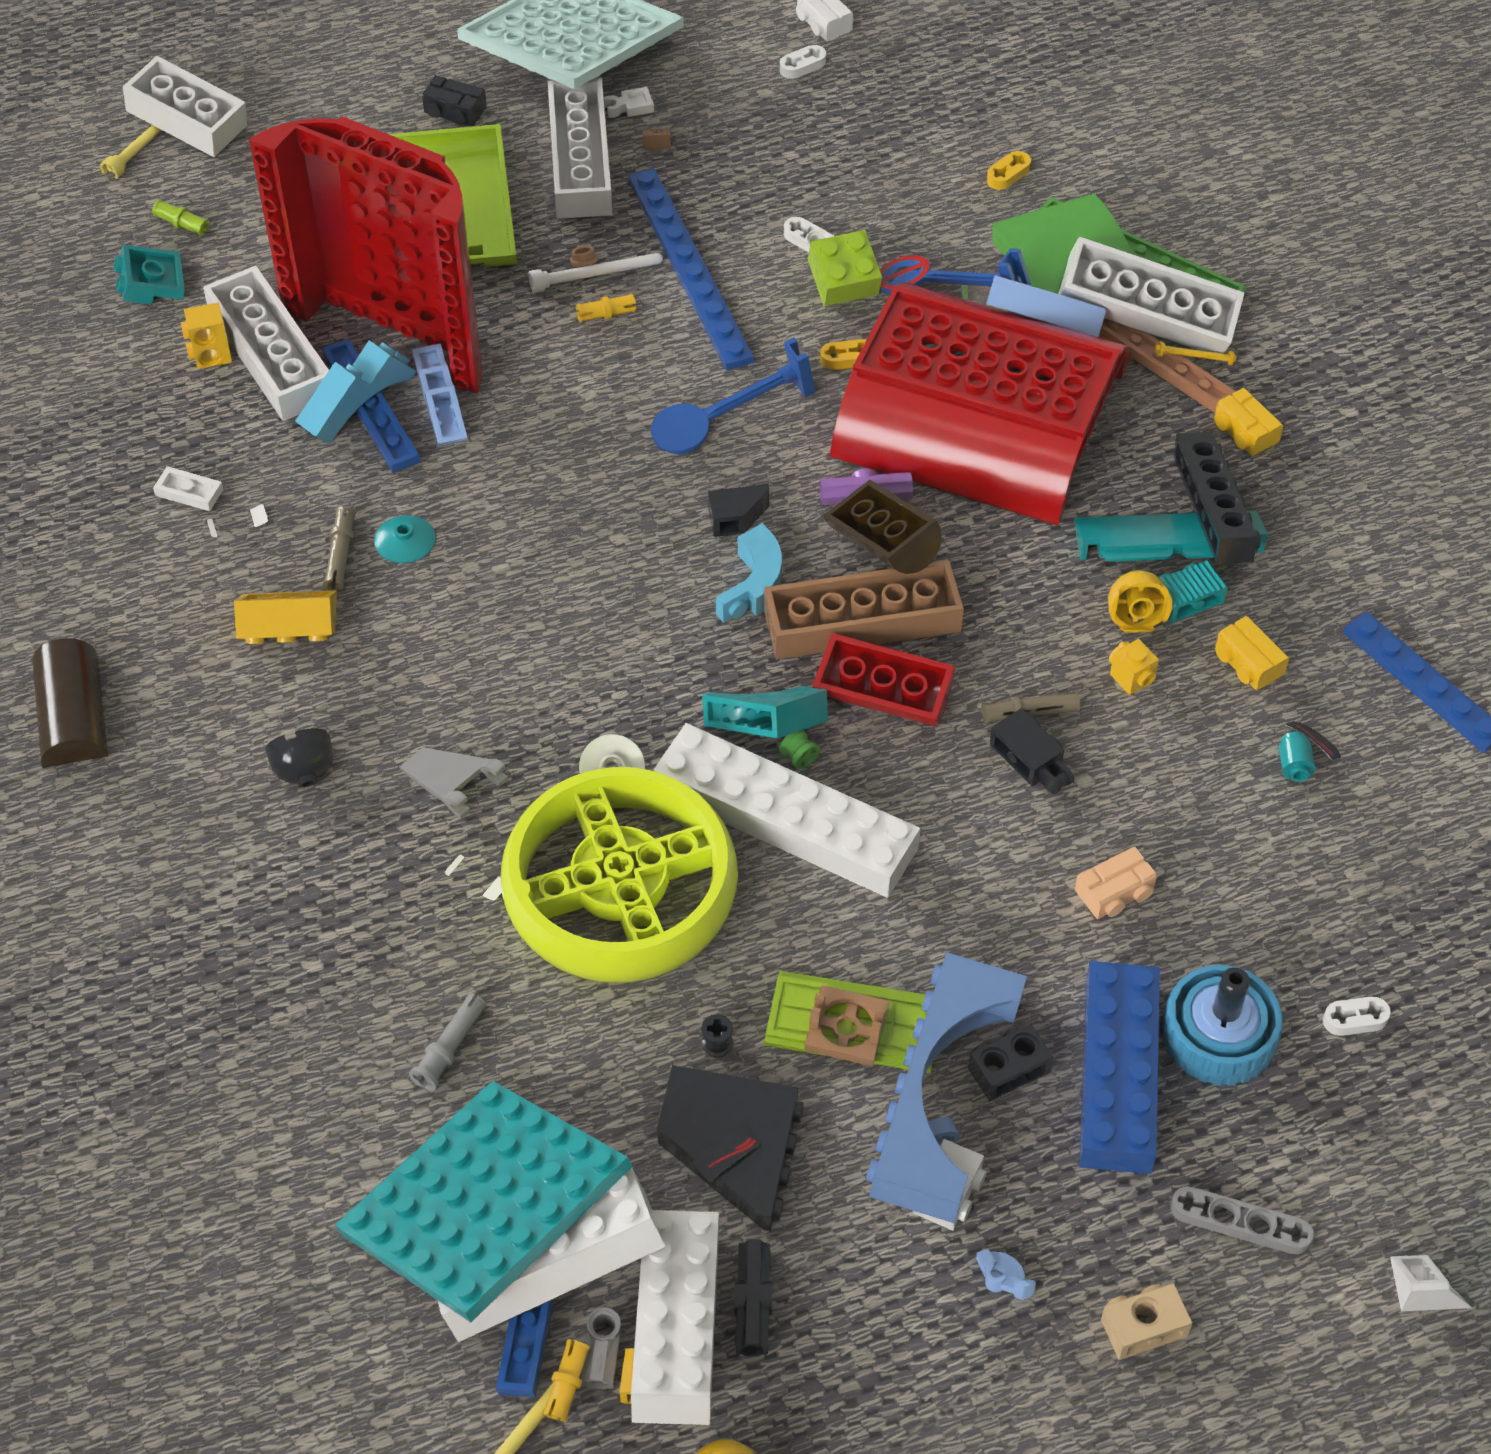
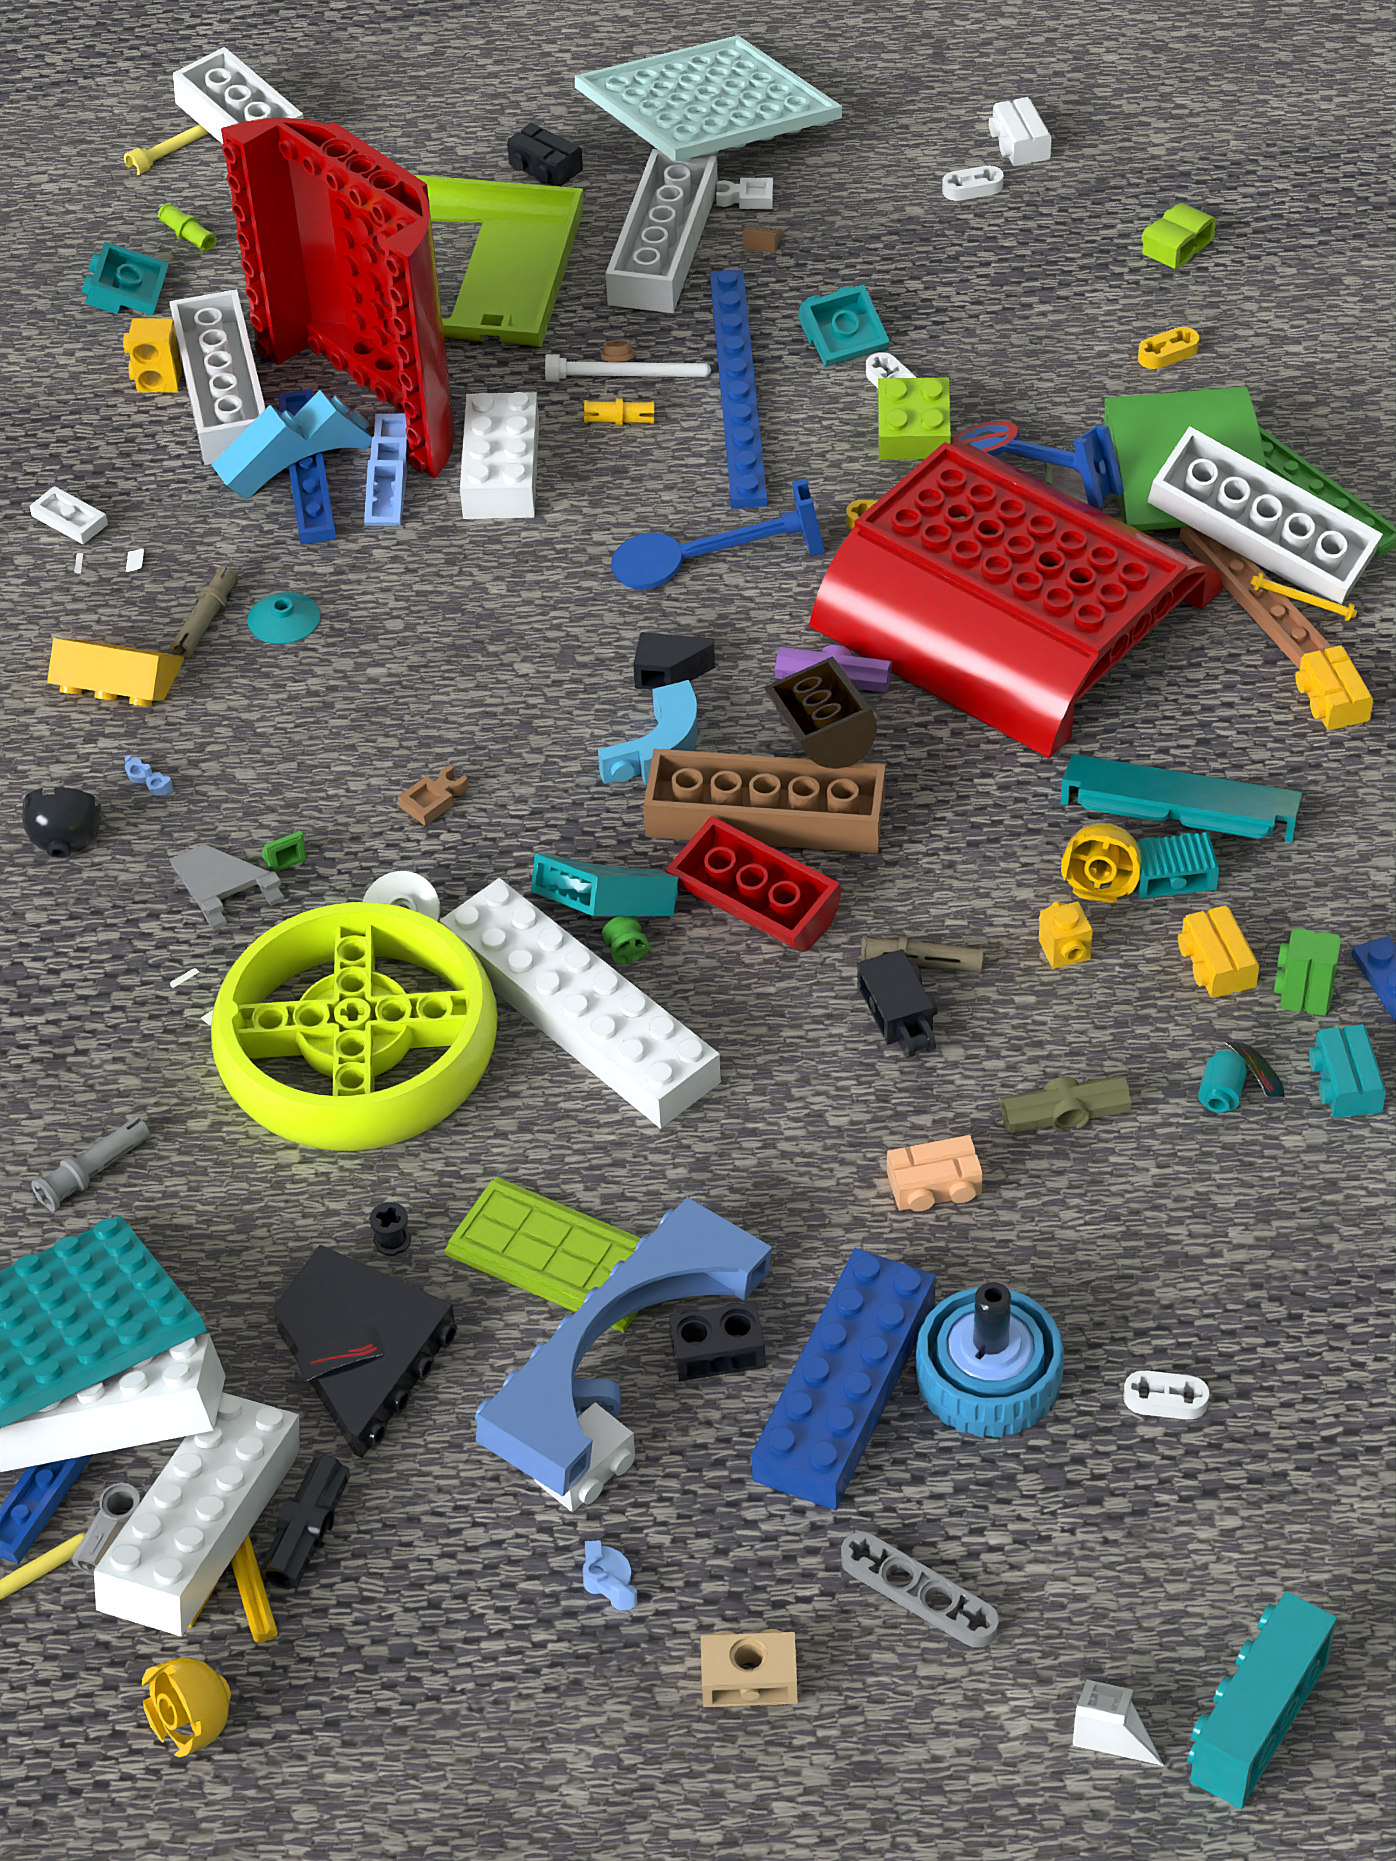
camera: 20 degrees right, 5 degrees down
(344, 698) = (142, 773): none -> light blue piece
(494, 740) = (284, 852): none -> bright green slope
(528, 364) = (499, 455): none -> white brick
(566, 1380) = (54, 1552): yellow pin -> none
(593, 667) = (432, 798): none -> medium nougat plate
(737, 1371) = (253, 1593): none -> yellow axle
(754, 200) = (843, 325): none -> teal plate
(862, 1053) = (569, 1265): medium nougat piece -> none
(979, 76) = (1178, 235): none -> lime brick
(1046, 306) = (1125, 502): light blue slope -> none
(1189, 802) = (1065, 1103): none -> olive piece
(1216, 498) = (1247, 763): black brick -> none
(1328, 654) = (1309, 971): none -> bright green brick
(1383, 726) = (1347, 1071): none -> teal brick

